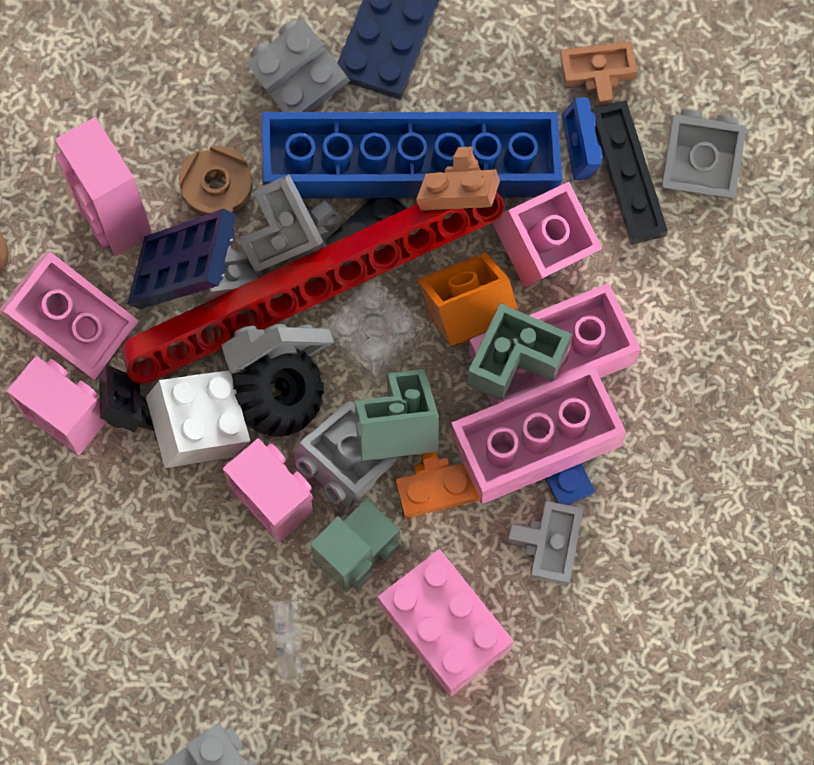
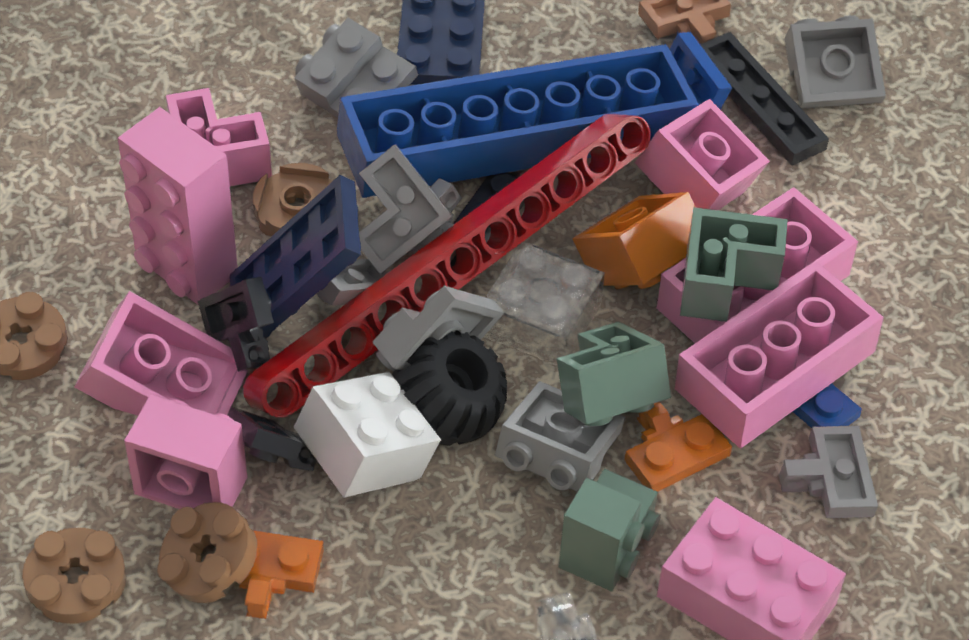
camera: 20 degrees left, 20 degrees down
(35, 481) = (189, 535): none -> medium nougat plate
(98, 502) = (280, 565): none -> orange hinge
(132, 290) = (237, 317): none -> black hinge
(157, 119) = (239, 137): none -> bright pink brick
(269, 489) = (483, 487): bright pink brick -> none
(460, 186) = (594, 117): nougat hinge -> none

